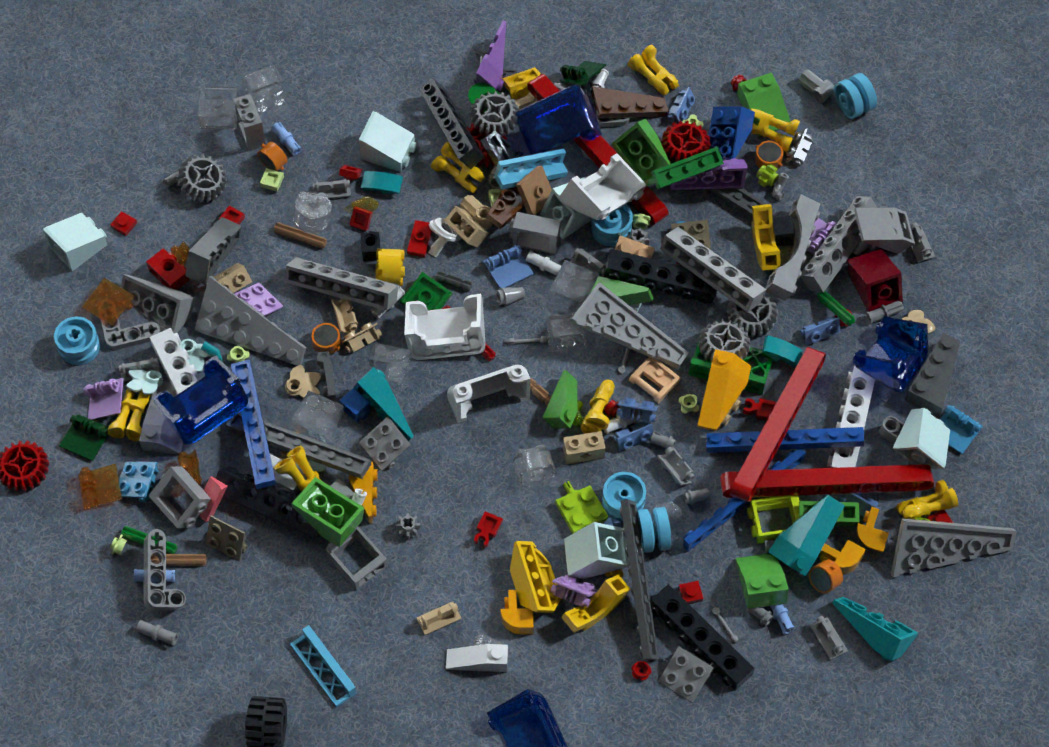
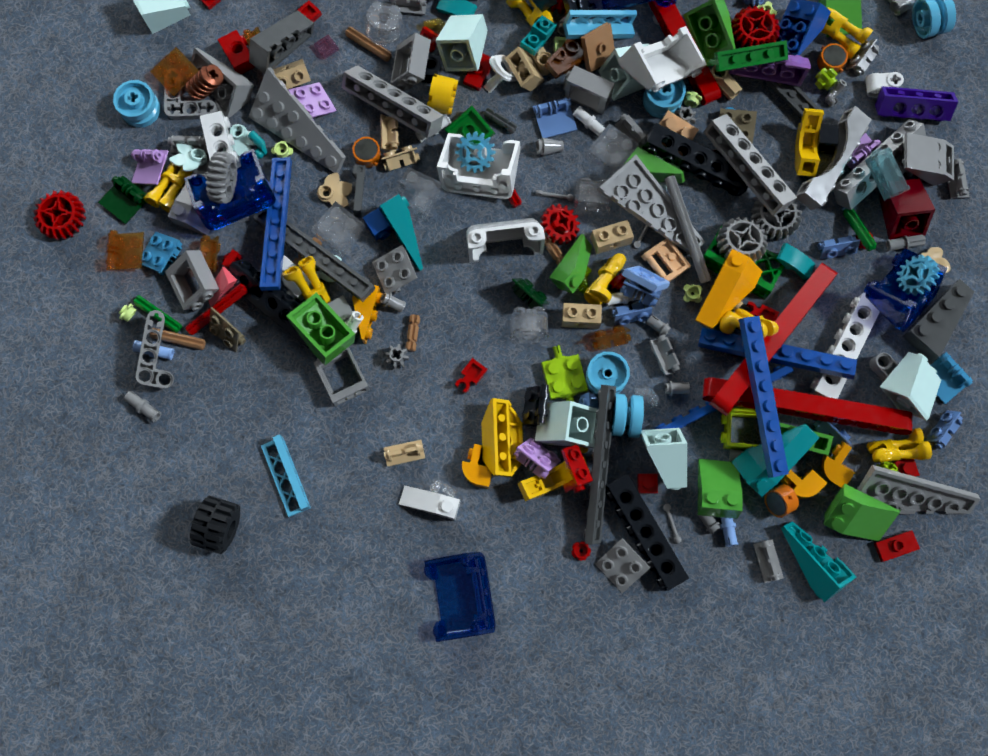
camera: 15 degrees right, 15 degrees up
(144, 304) = (204, 82): none -> copper piece
(191, 388) = (221, 177): none -> light grey gear
(213, 469) = (231, 257): none -> red plate
(218, 512) = (219, 306): none -> red axle
(257, 247) = (326, 46): none -> clear pink tile
(351, 227) = (410, 62): none -> light grey window
(389, 475) = (393, 302): none -> light grey pin
(397, 214) = (462, 42): none -> light aqua slope
(417, 501) = (412, 333): none -> medium nougat axle
(430, 309) = (470, 147): none -> medium azure gear
(472, 192) = (539, 34): none -> teal slope
(517, 437) = (524, 286): none -> dark green hinge
(540, 365) = (561, 223): none -> red gear
(560, 541) = (535, 405): none -> black plate
(595, 367) = (612, 237): none -> tan brick
(620, 589) = (577, 469): none -> red bracket
(625, 458) = (618, 336): none -> clear orange hinge
(639, 397) = (646, 278): none -> light blue tile
(668, 343) = (687, 229): none -> light grey axle
(671, 199) = (727, 84): none -> tan piece
(704, 556) = (669, 455): none -> light aqua slope
(746, 416) = (731, 320): none -> yellow piece
(780, 476) = (763, 396): none -> blue plate
(823, 170) = (876, 80): none -> white piece
(846, 249) = (886, 173): none -> clear light blue brick
(851, 176) = (925, 100): none -> dark purple brick
(901, 337) = (909, 279): none -> medium azure gear
(905, 572) = (859, 514): none -> bright green slope
(949, 596) = (896, 546): none -> red plate
(963, 482) = (950, 422): none -> medium blue hinge

